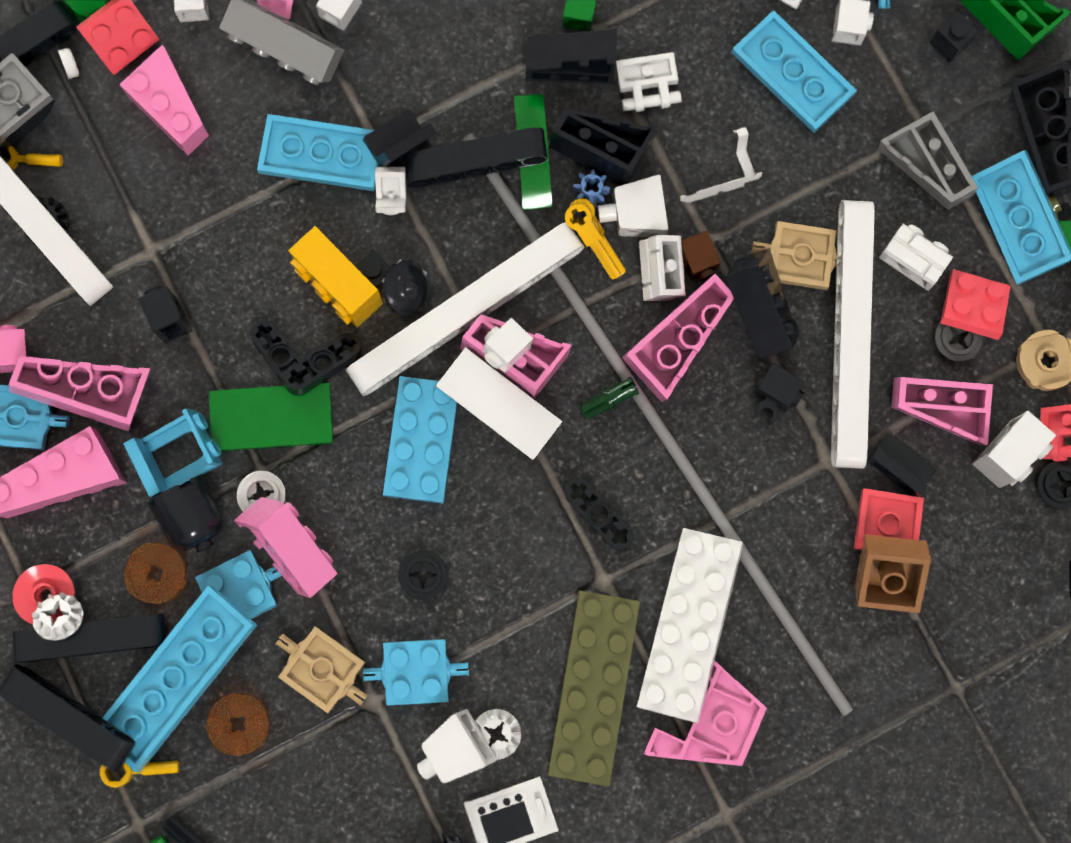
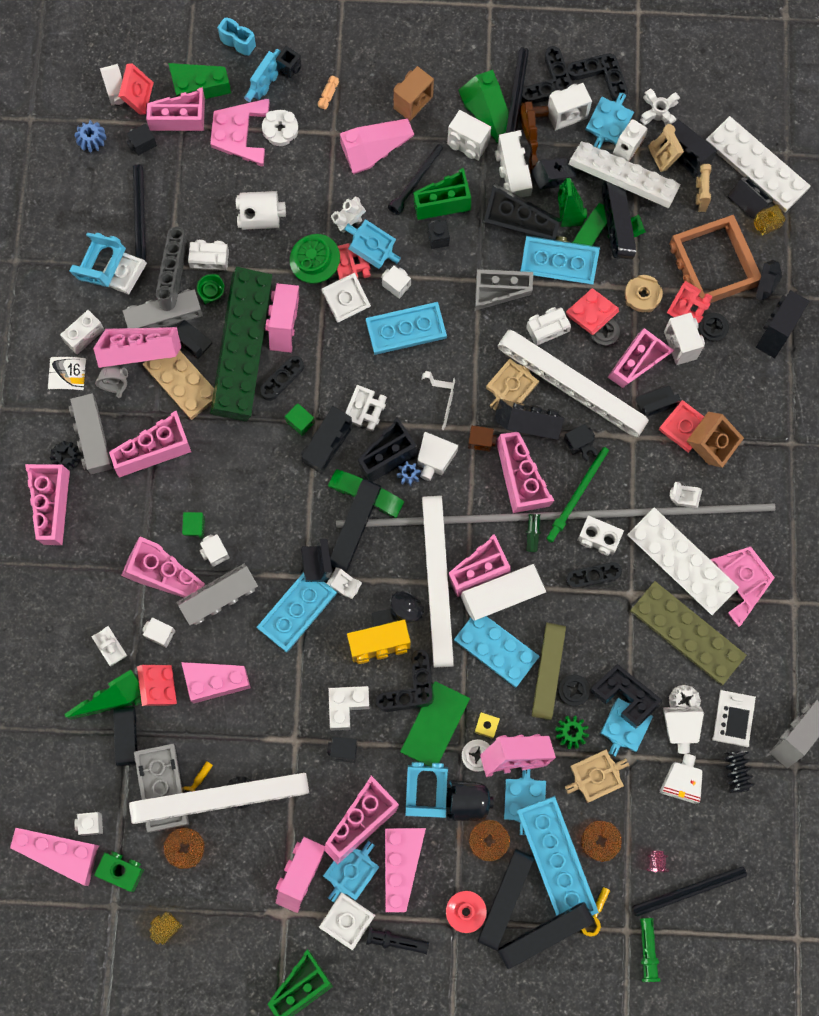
camera: 60 degrees left, 5 degrees down
(65, 624) = (494, 905): white gear -> none
(69, 63) = (154, 725): white tile -> none
(227, 279) = (342, 701): none -> white brick
(249, 817) = (658, 862): none -> clear pink brick
(315, 493) = (483, 731): none -> light yellow piece
(362, 592) = (566, 727): none -> green gear
(381, 792) = (683, 781): none -> white torso
(429, 525) = (548, 671): none -> olive beam
(460, 673) = (643, 700): none -> black plate
(506, 345) = (477, 567): white brick -> none
(593, 236) = (436, 487): yellow connector -> none
(641, 427) = (559, 523): none -> green bar
(662, 268) = (477, 461): white brick -> none
(666, 491) = (601, 530): none -> white brick
(787, 577) = (685, 495): none -> white bracket

